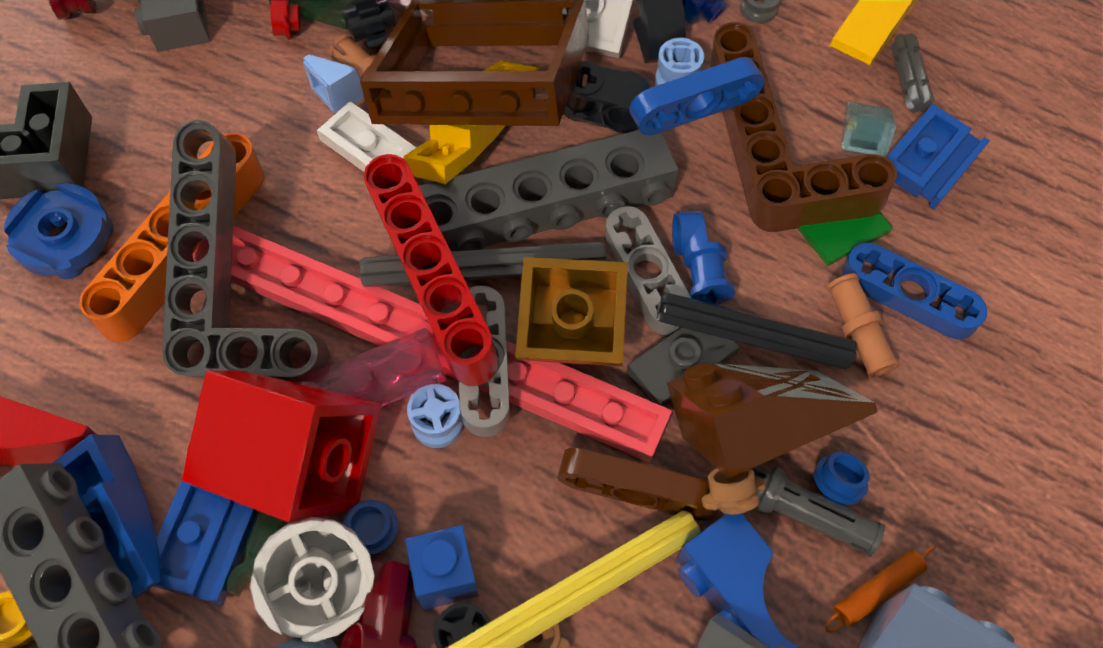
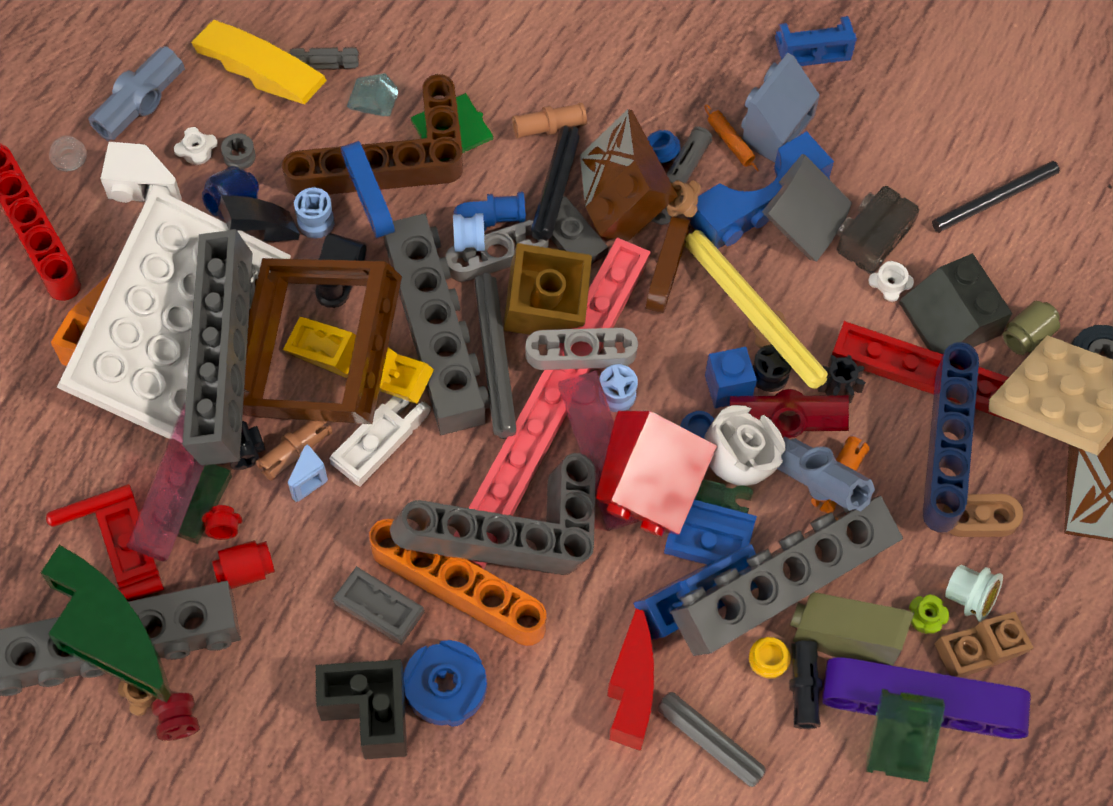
camera: 90 degrees left, 0 degrees up
(149, 172) = (378, 605): none -> dark grey plate
(230, 36) = (243, 564): none -> red brick
(436, 286) = (507, 384): red beam -> none
(653, 218) = (468, 232): none -> light blue wheel
(934, 285) = (519, 74): blue beam -> none
(935, 155) = (406, 56): blue plate -> none

